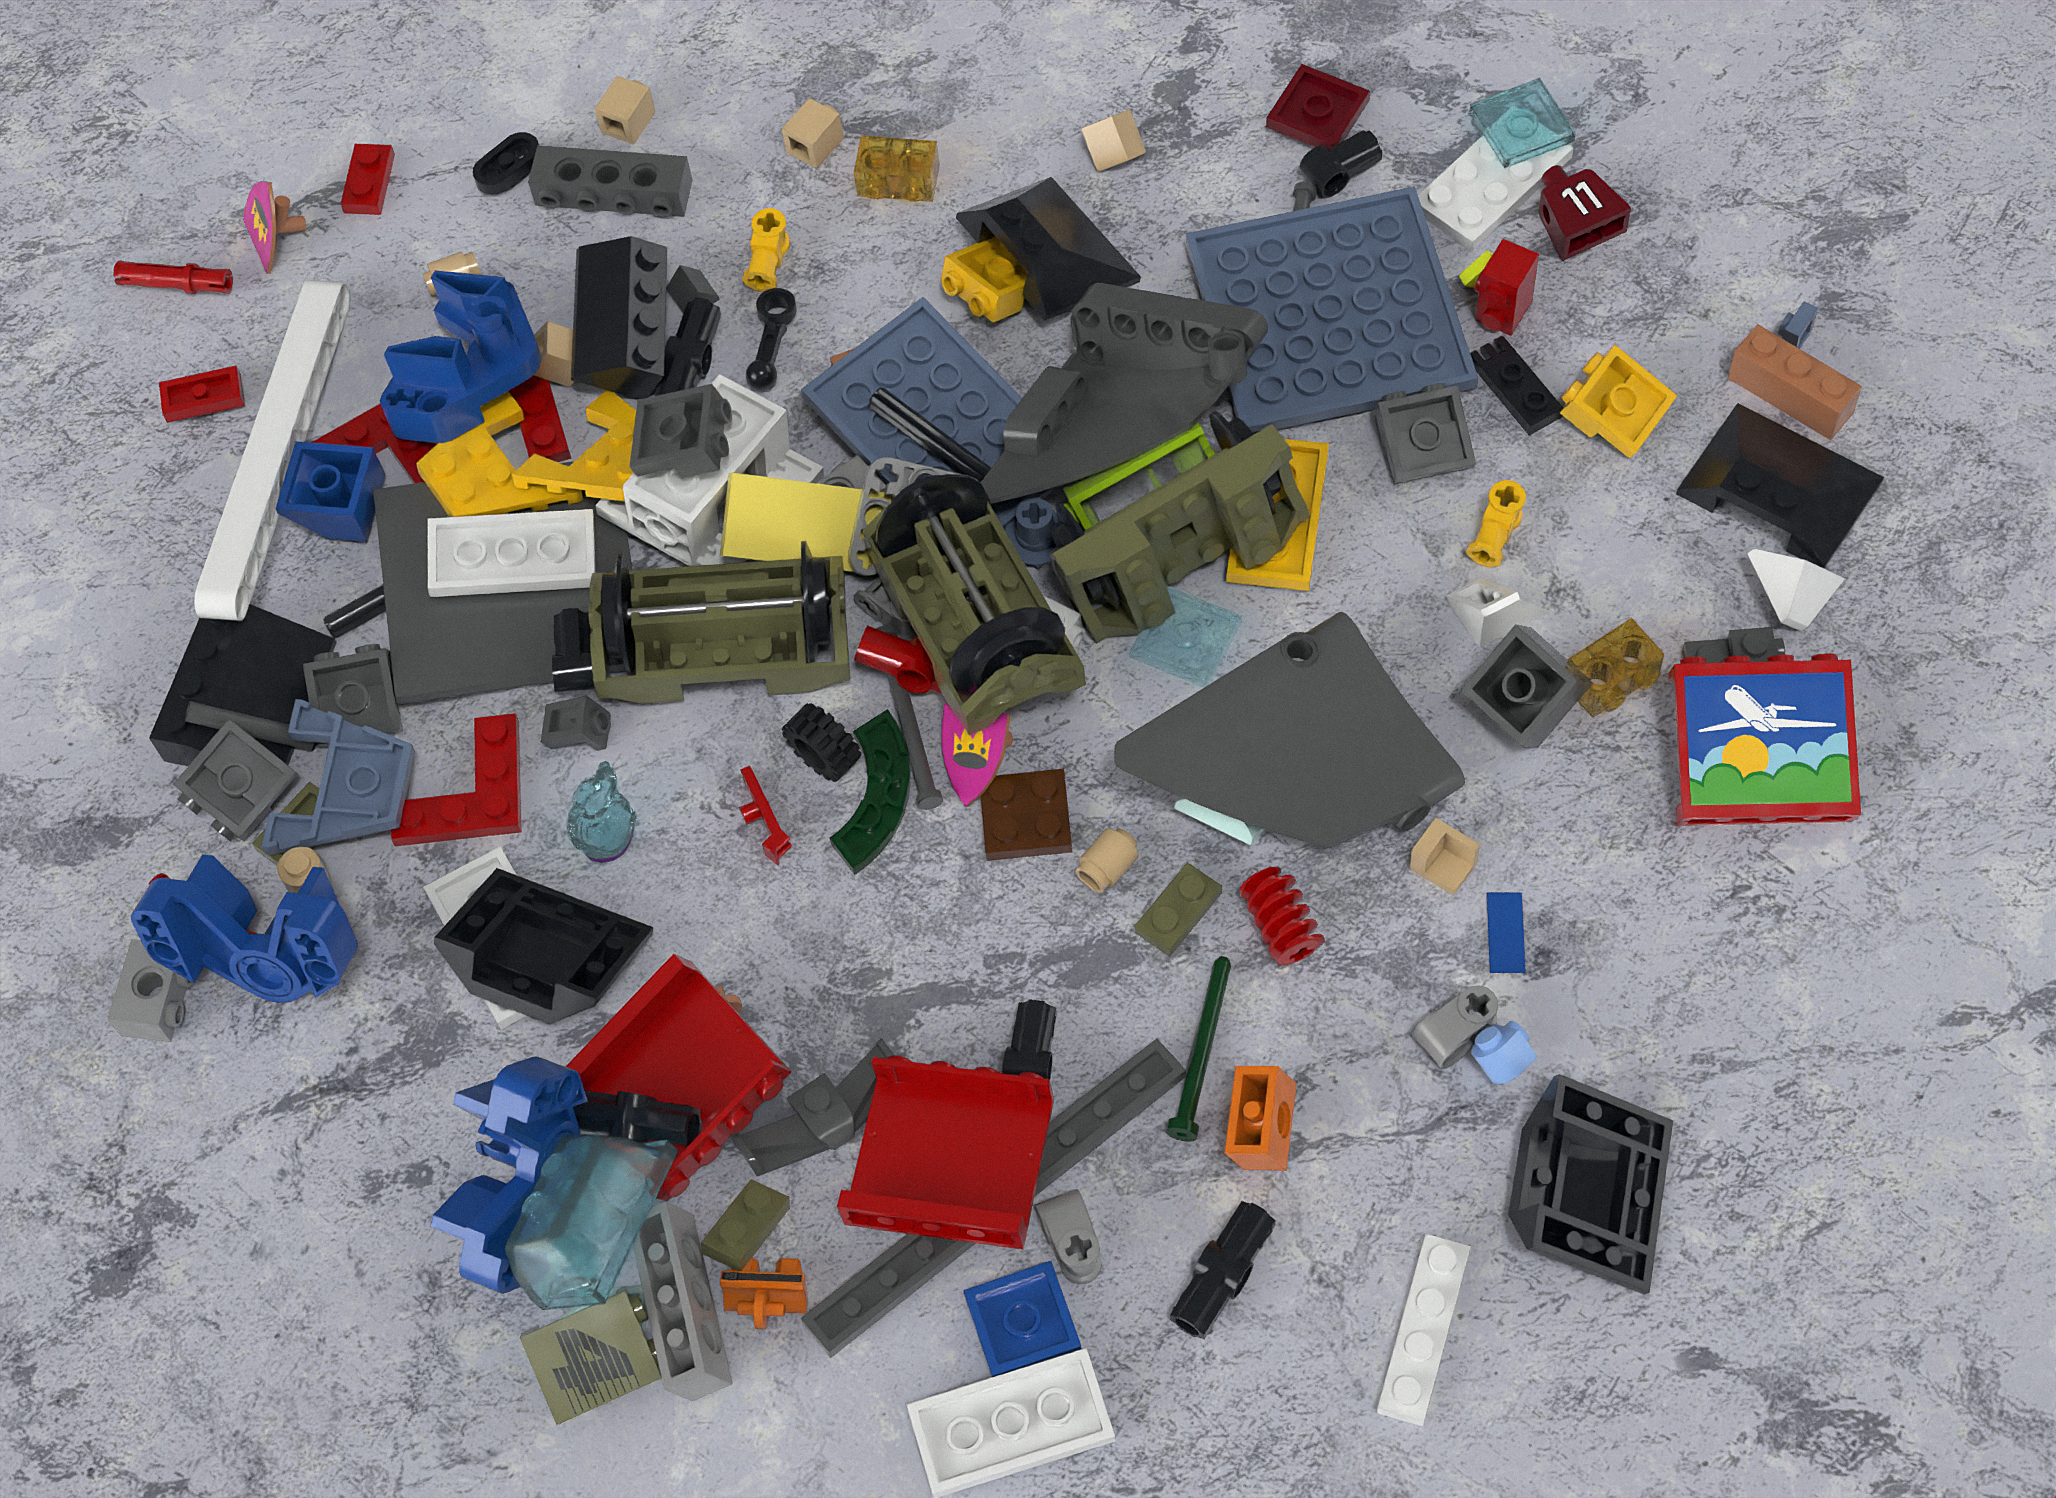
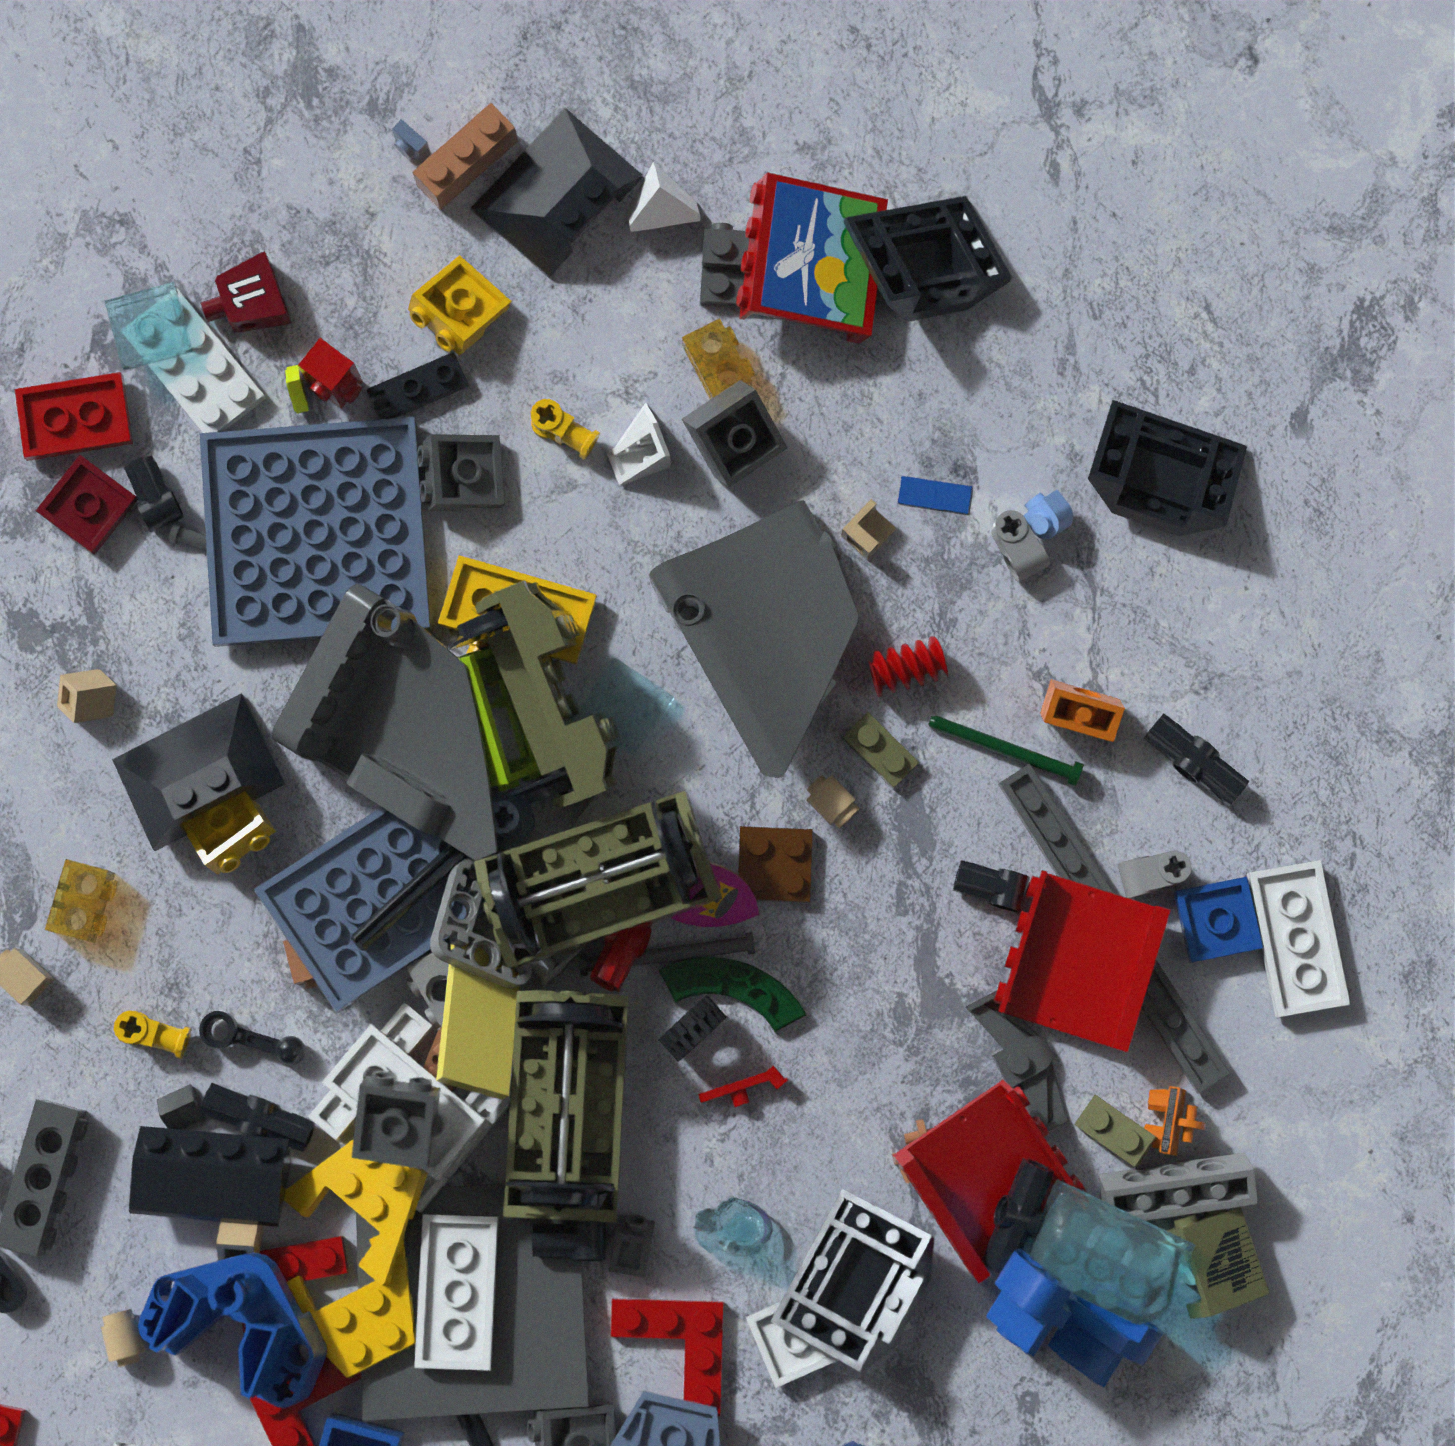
camera: 90 degrees left, 20 degrees up
(1411, 83) = (73, 416): none -> red plate
(1423, 1330) = (1256, 616): white plate -> none
(1796, 866) = (929, 257): none -> black slope

